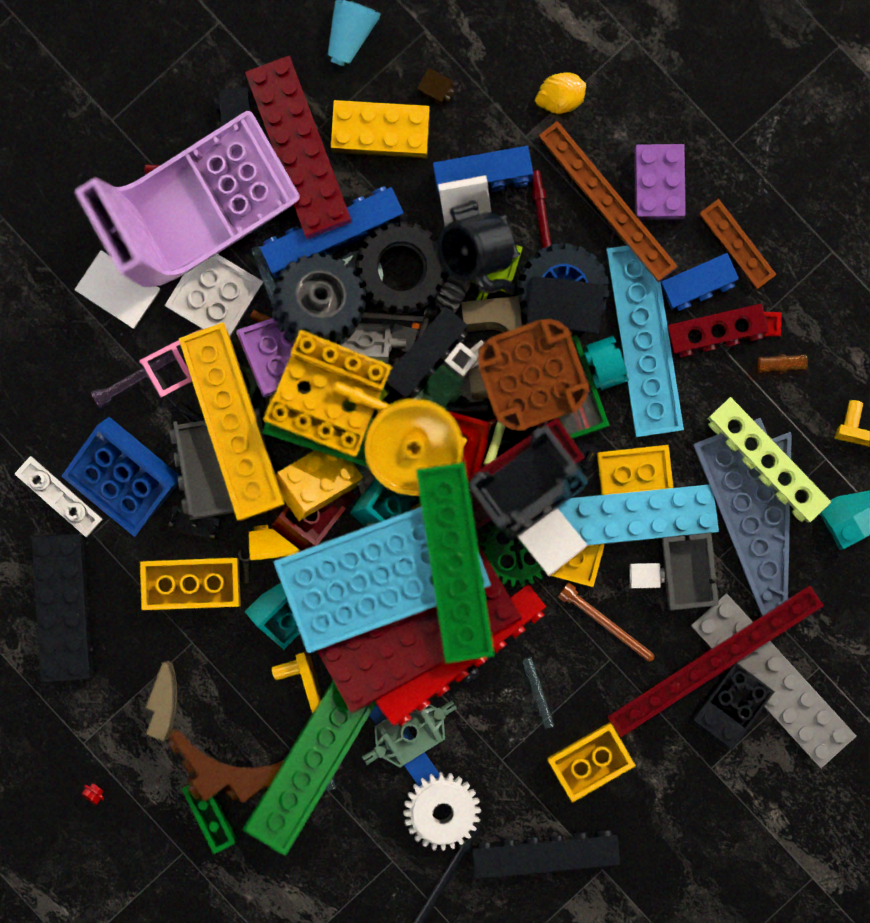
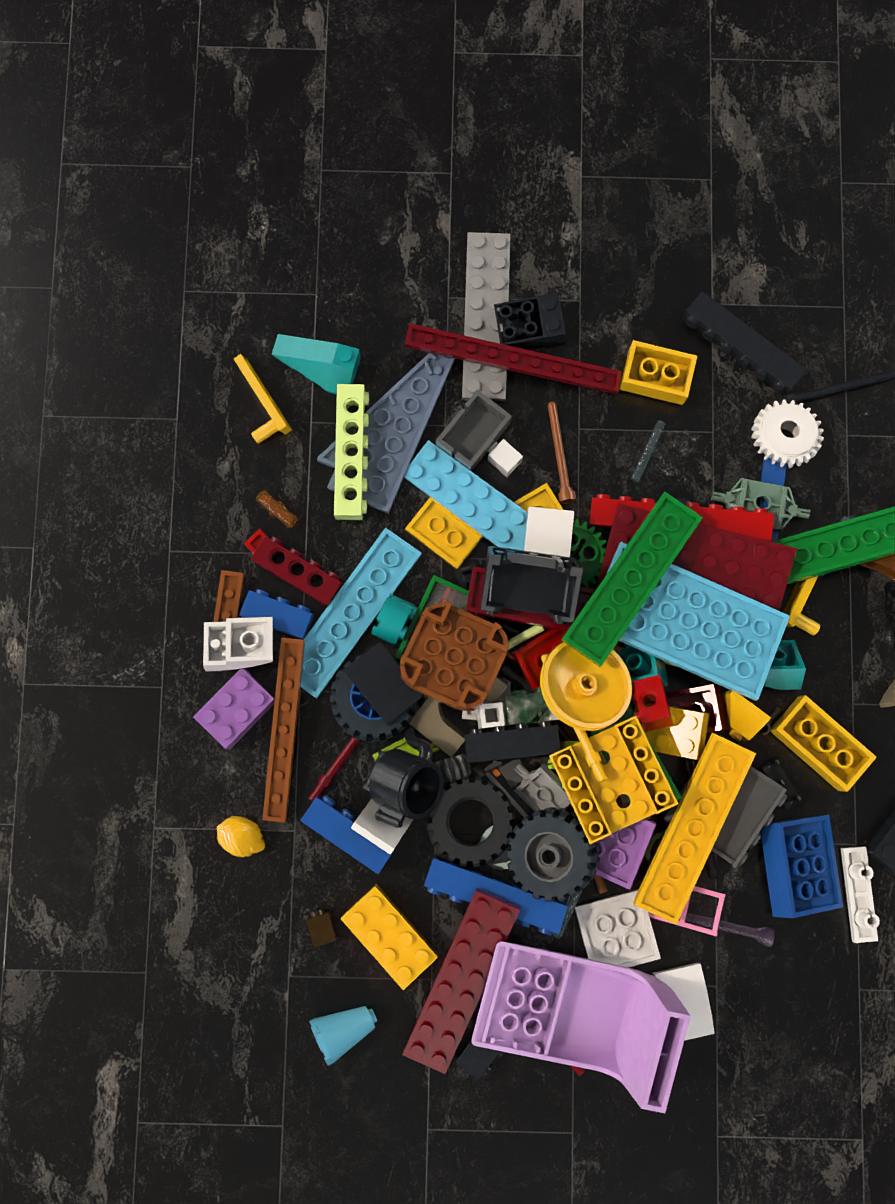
camera: 140 degrees left, 5 degrees down
(337, 480) = (659, 714): none -> red brick
(705, 229) = (238, 643): none -> white slope

